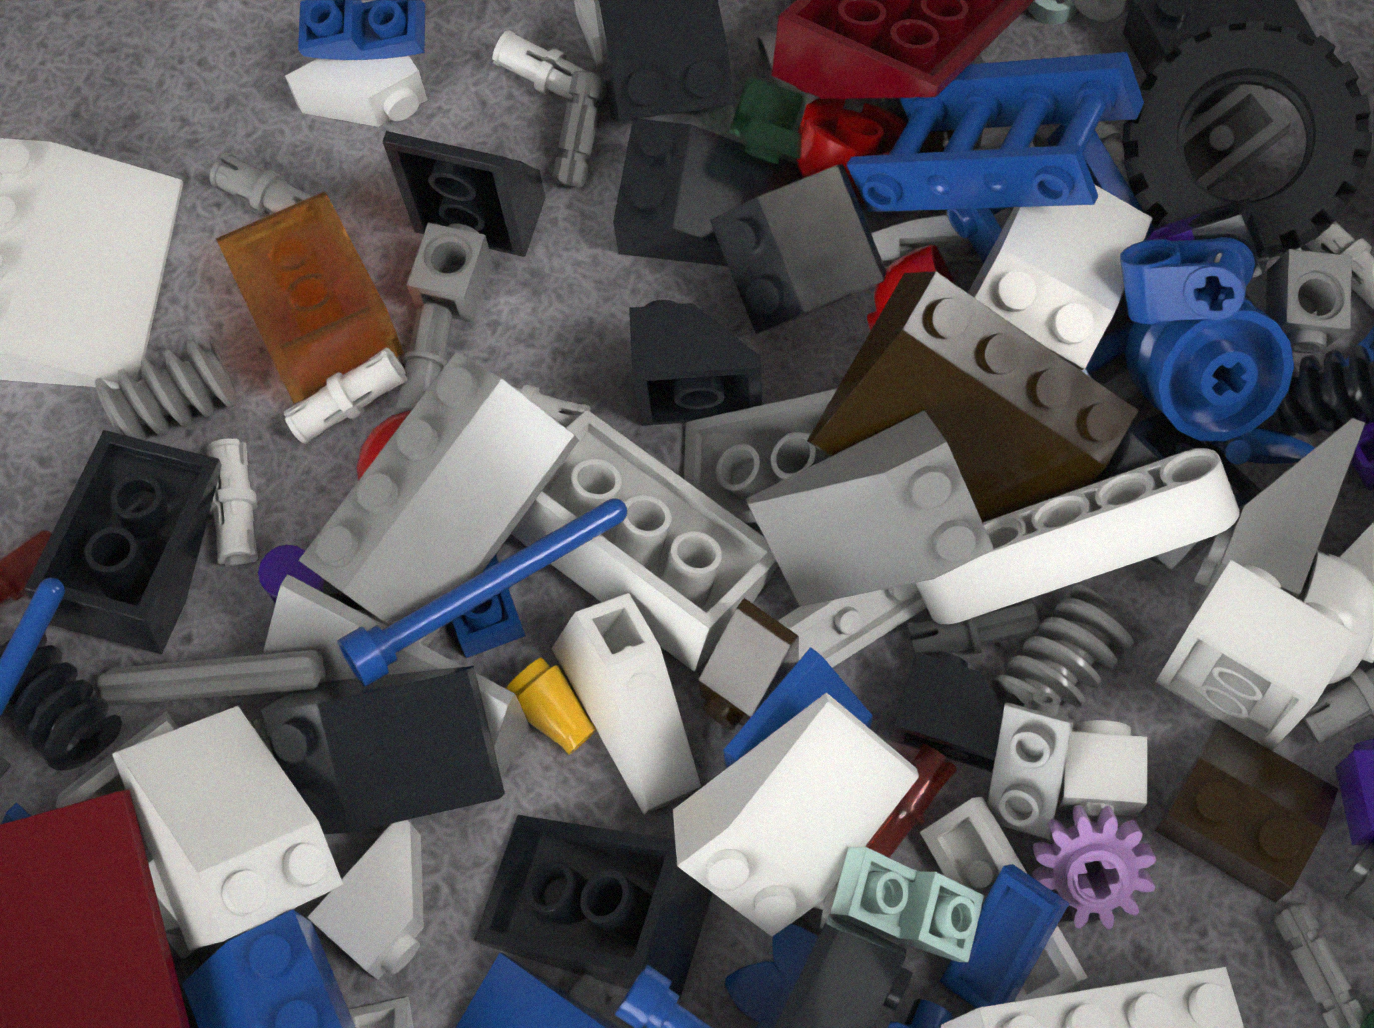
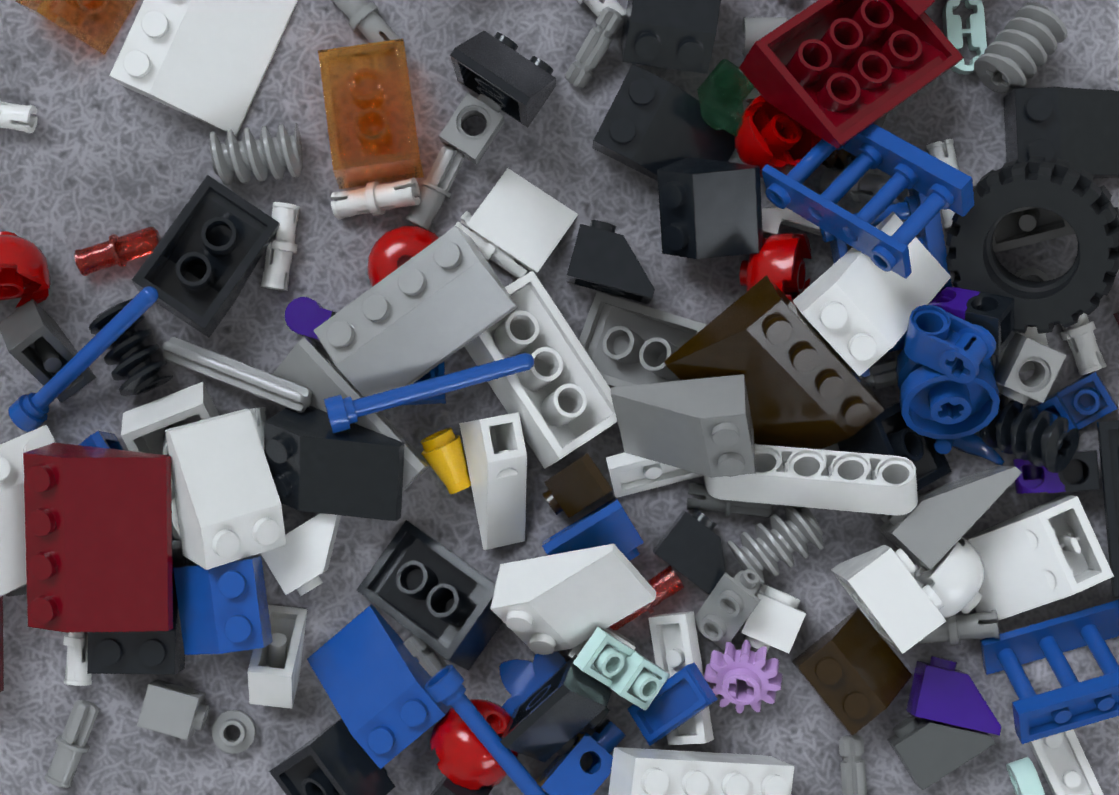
camera: 15 degrees right, 20 degrees up
(557, 361) = (522, 220): none -> white piece

